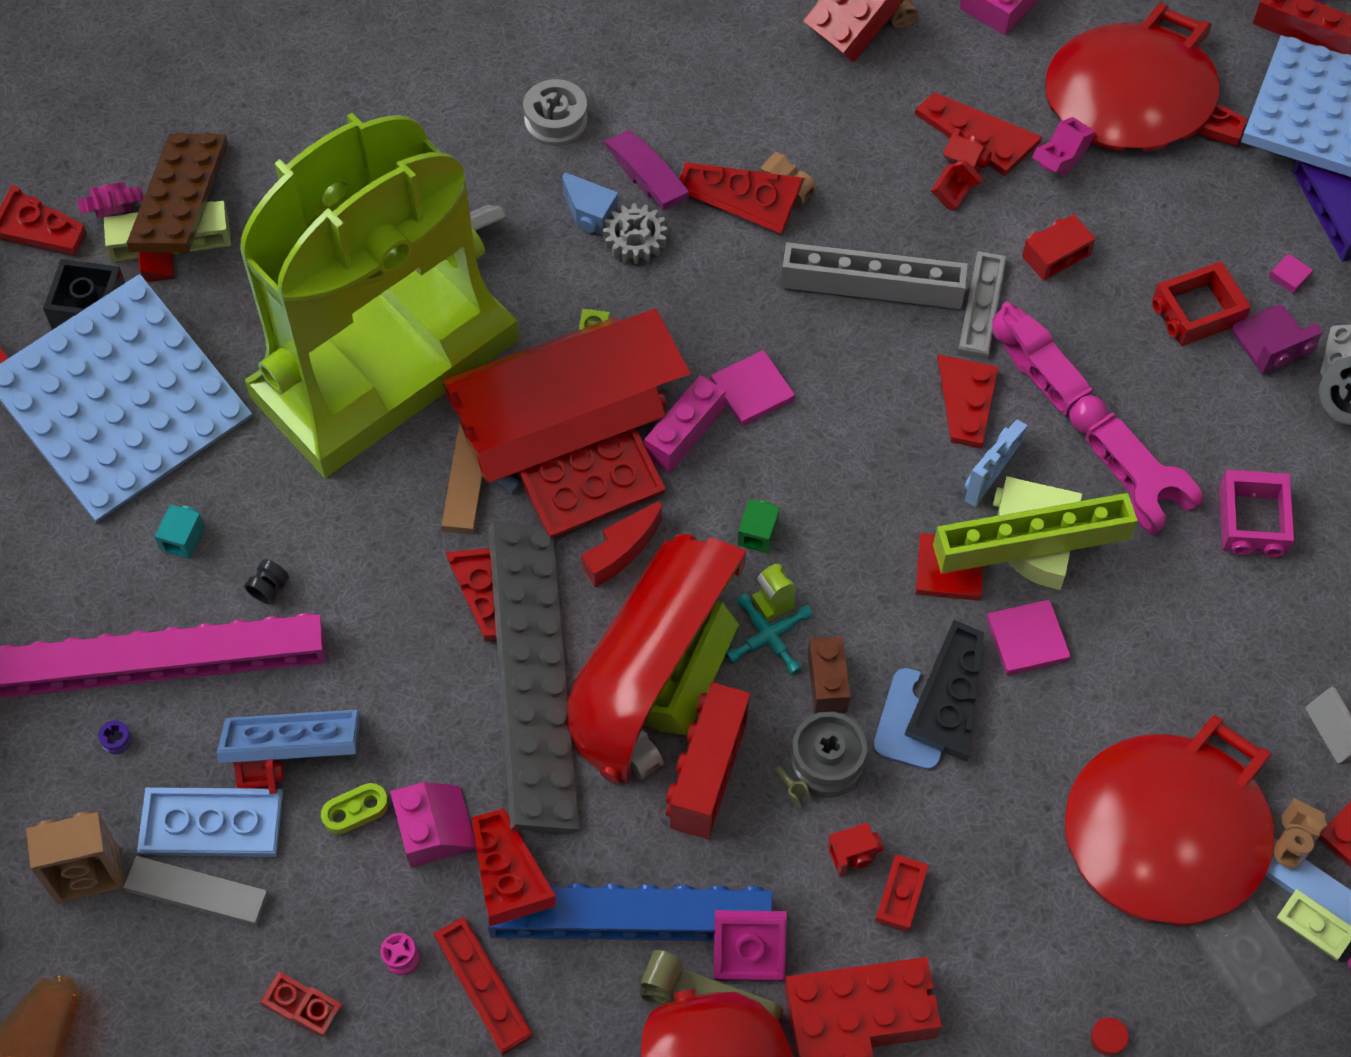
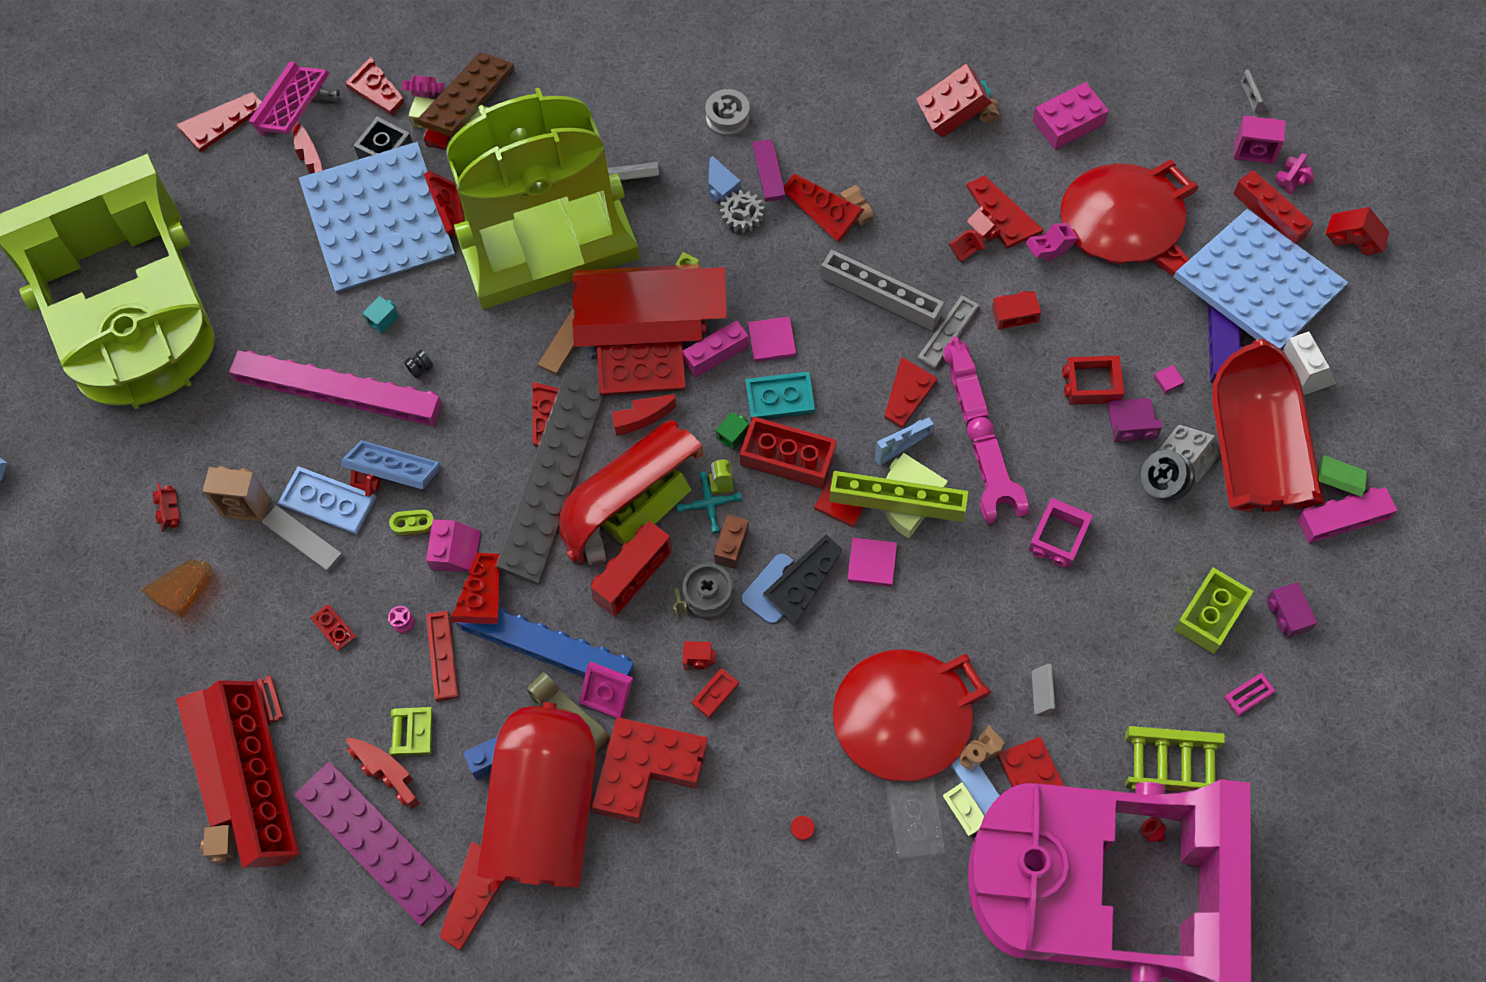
camera: 25 degrees right, 5 degrees up
(110, 728) = (294, 435): dark purple bush -> none
(213, 345) = (446, 200): none -> red wing
(800, 458) = (780, 395): none -> teal plate
(850, 528) = (788, 452): none -> red brick

